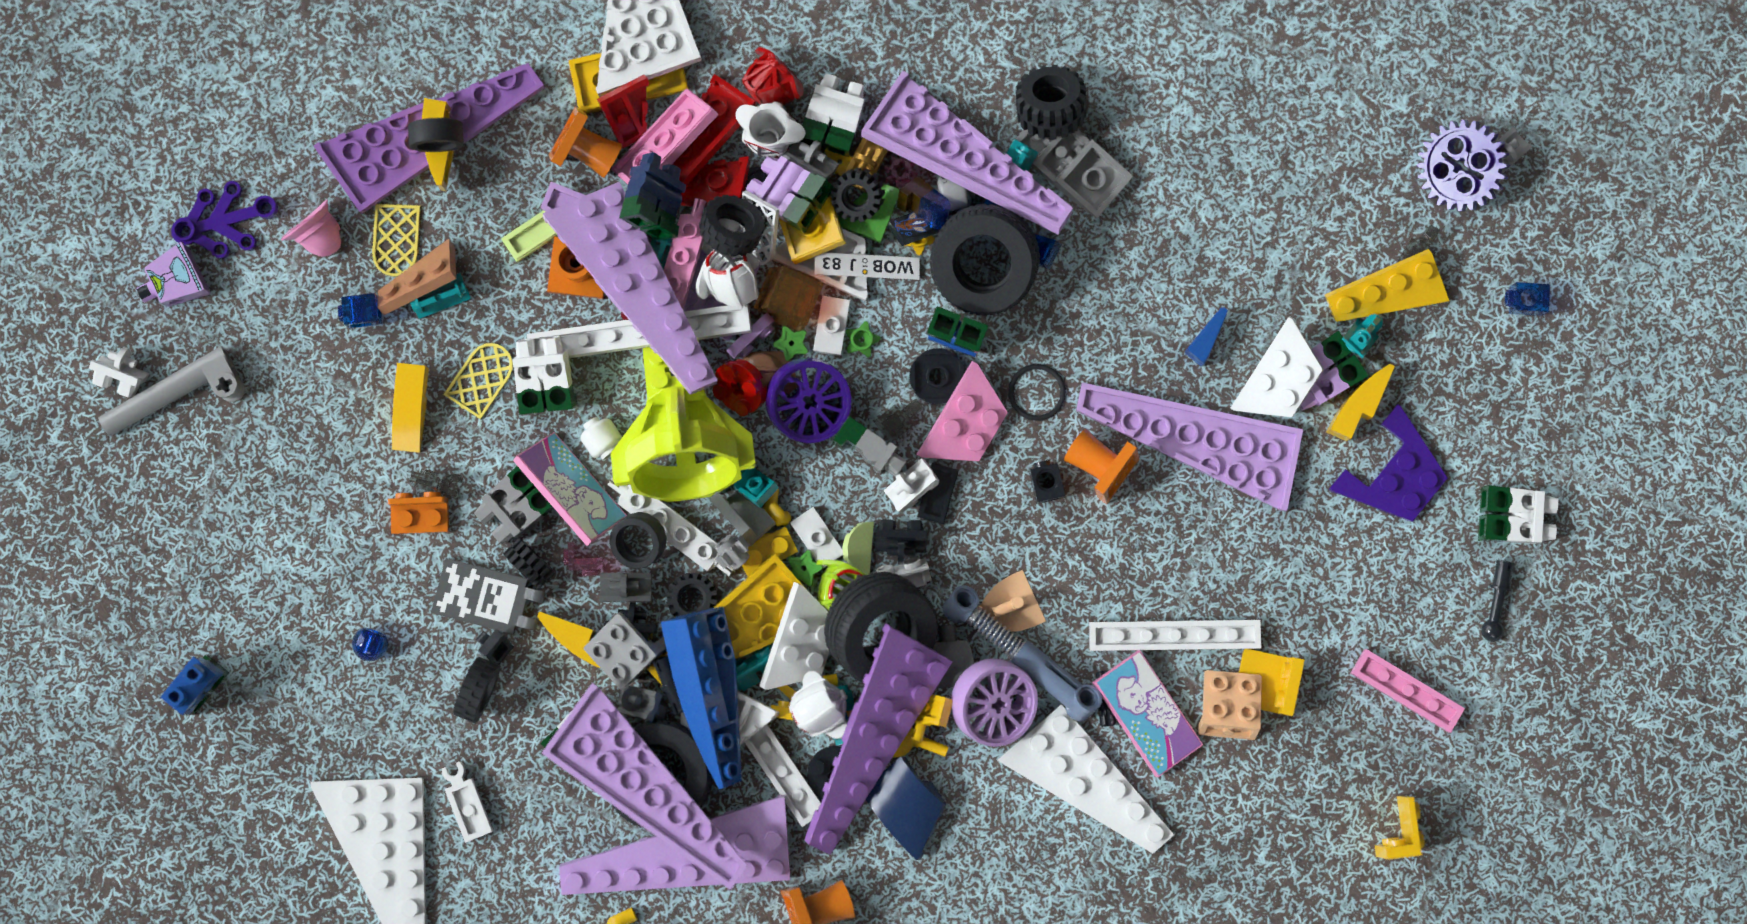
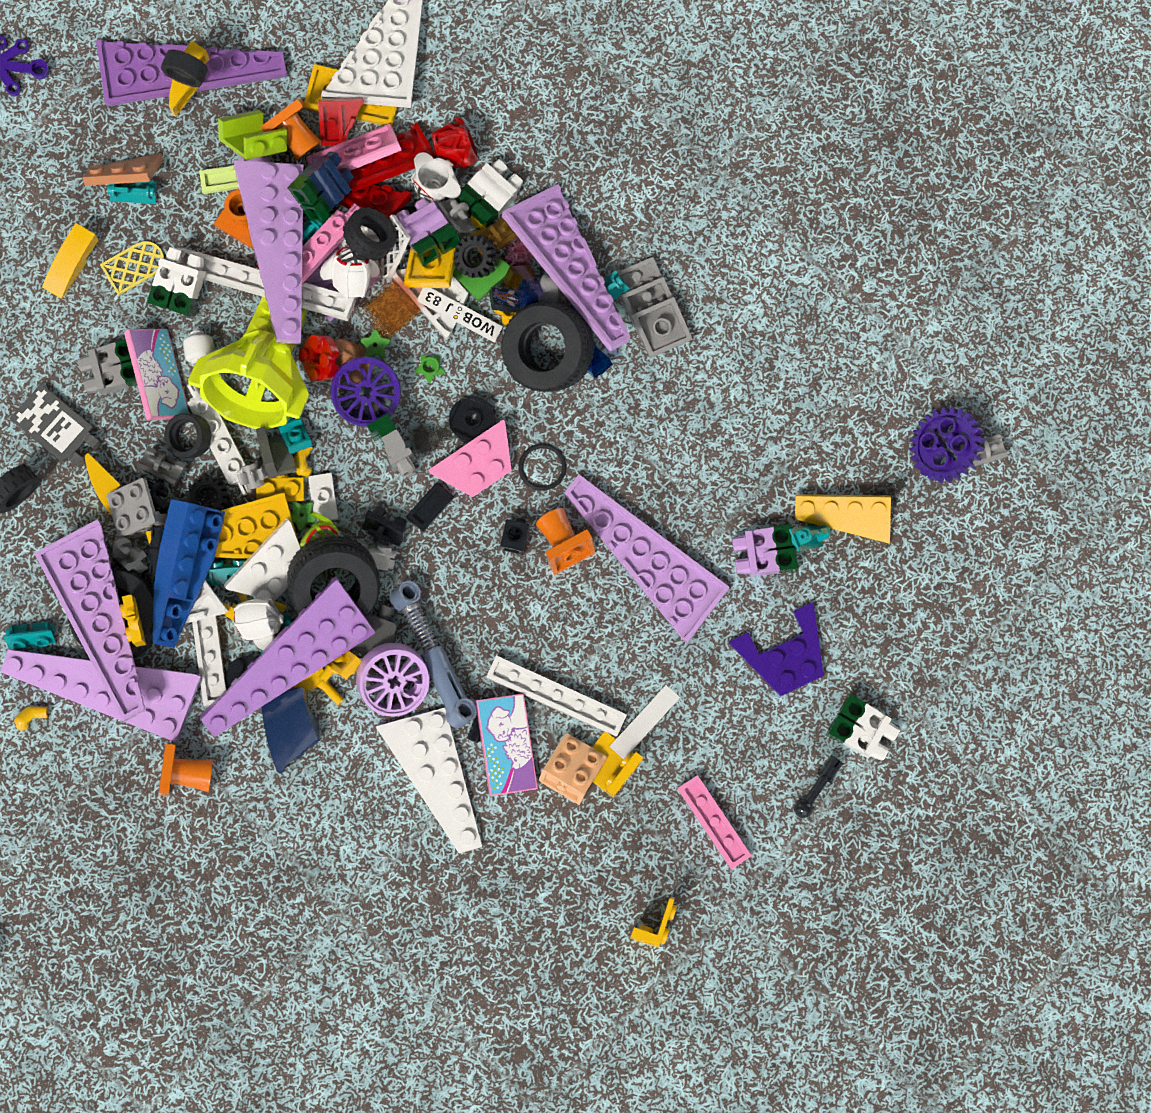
camera: 25 degrees right, 5 degrees down
(317, 232) = (66, 104): bright pink piece -> none
(360, 311) = (69, 174): clear blue brick -> none
(386, 236) = (113, 121): light yellow window -> none
(419, 514) = (38, 342): orange bracket -> none
(429, 481) = (57, 322): clear smoke plate -> none
(494, 647) = (43, 464): black tile -> none
(529, 563) = (98, 414): black tyre -> none
(540, 180) = (246, 138): none -> lime panel
(586, 834) = (19, 636): none -> teal hinge
(588, 566) = (142, 438): clear pink bracket -> none
(678, 766) = (130, 612): none -> yellow plate
(761, 328) = (356, 323): lavender plate -> none
(831, 326) = (412, 346): white plate -> none
(858, 546) = (350, 517): yellowish green tile -> none
(911, 485) = (411, 490): white hips -> none
(957, 335) = (499, 390): dark green hips -> none
(1013, 603) = (446, 616): light nougat shield -> none
(1051, 102) = (655, 255): black tyre -> none
(1202, 345) = (685, 487): blue slope -> none
(1281, 618) = (644, 722): none -> white sticker
(1282, 375) = (731, 538): white wing -> none
(1360, 404) = (783, 587): yellow slope -> none
(1539, 294) = (961, 569): clear blue brick -> none

